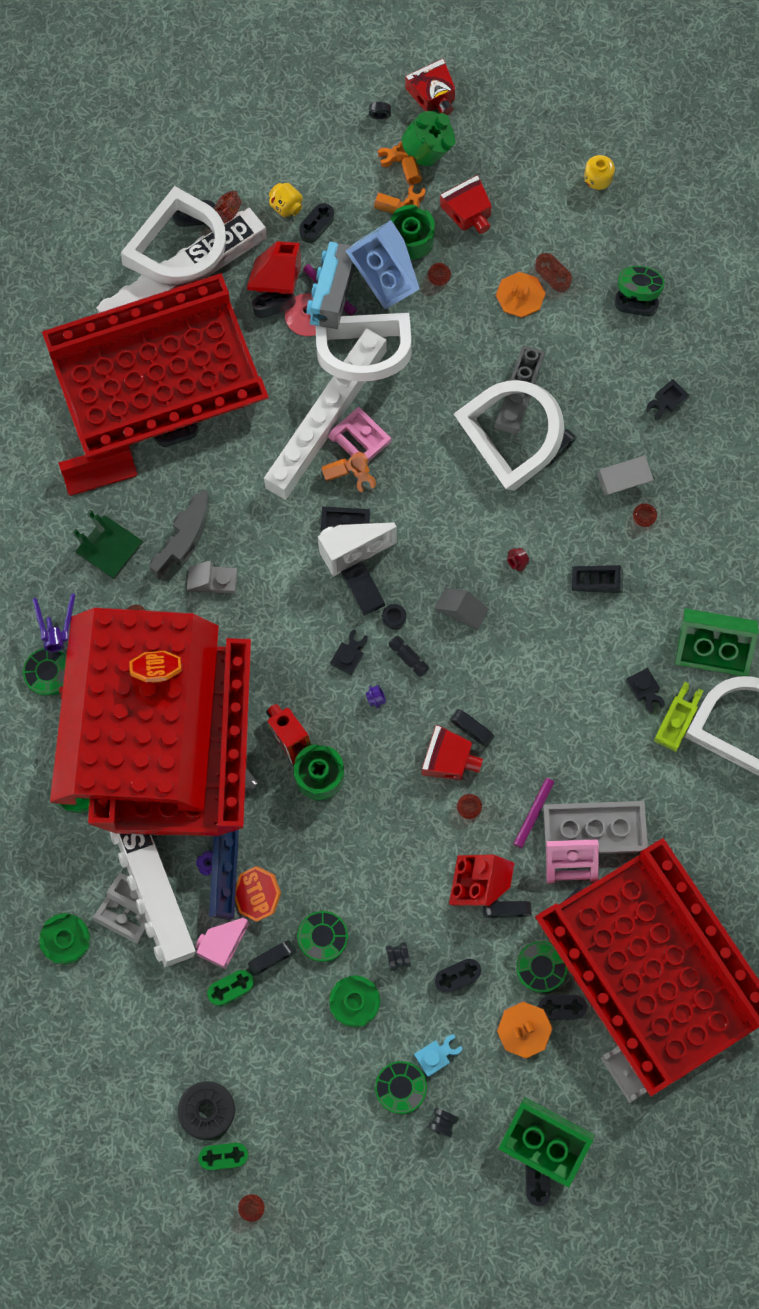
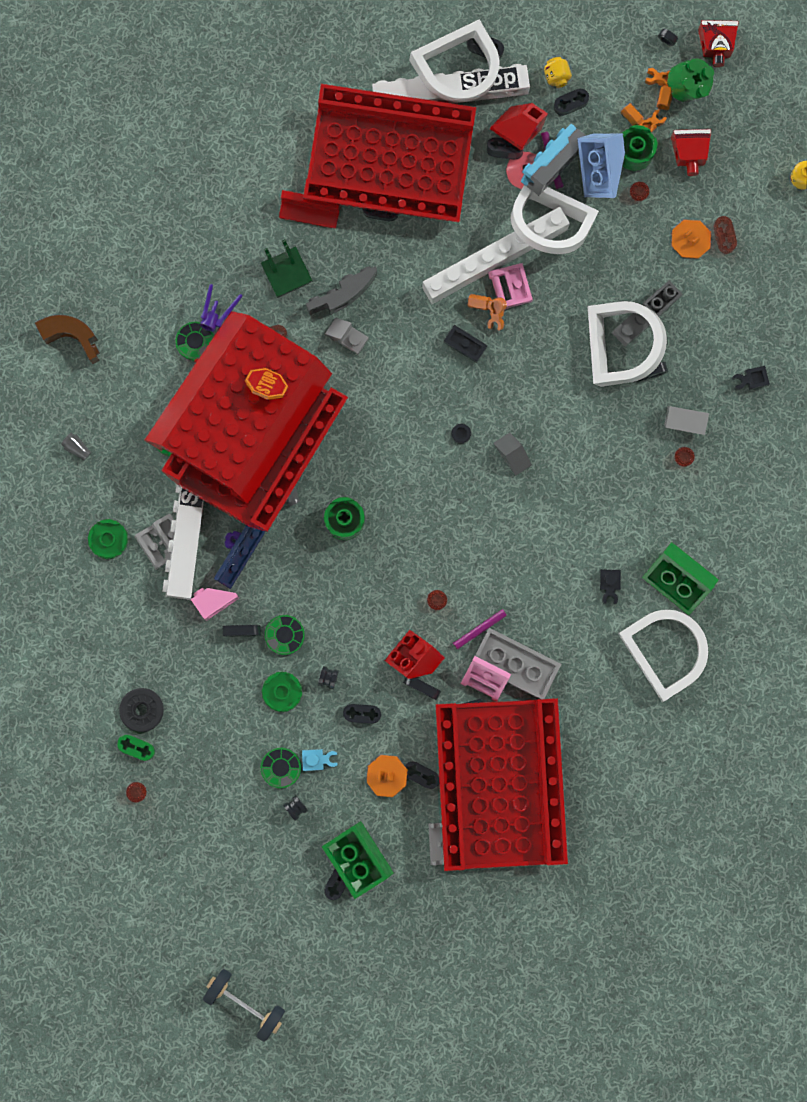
camera: 25 degrees right, 10 degrees up
(227, 982) = (202, 641): green beam -> none
(228, 206) = (511, 55): clear red beam -> none
(257, 893) = (255, 581): piece -> none
(287, 731) = (338, 477): red torso -> none
(348, 656) = (412, 445): black plate -> none
(354, 543) = (458, 365): white slope -> none
(363, 588) = (450, 401): black slope -> none
(375, 696) = (415, 485): dark purple plate -> none
(408, 655) = (455, 468): black axle -> none
(449, 756) = (442, 557): red torso -> none
(472, 727) = (470, 545): black beam -> none
(517, 559) = (573, 440): dark red plate -> none
(540, 967) = (421, 739): tile -> none
(608, 570) = (626, 495): black slope -> none
(635, 306) = (775, 287): black beam -> none
(641, 283) = (784, 278): tile -> none
(677, 719) = (619, 618): lime hinge -> none

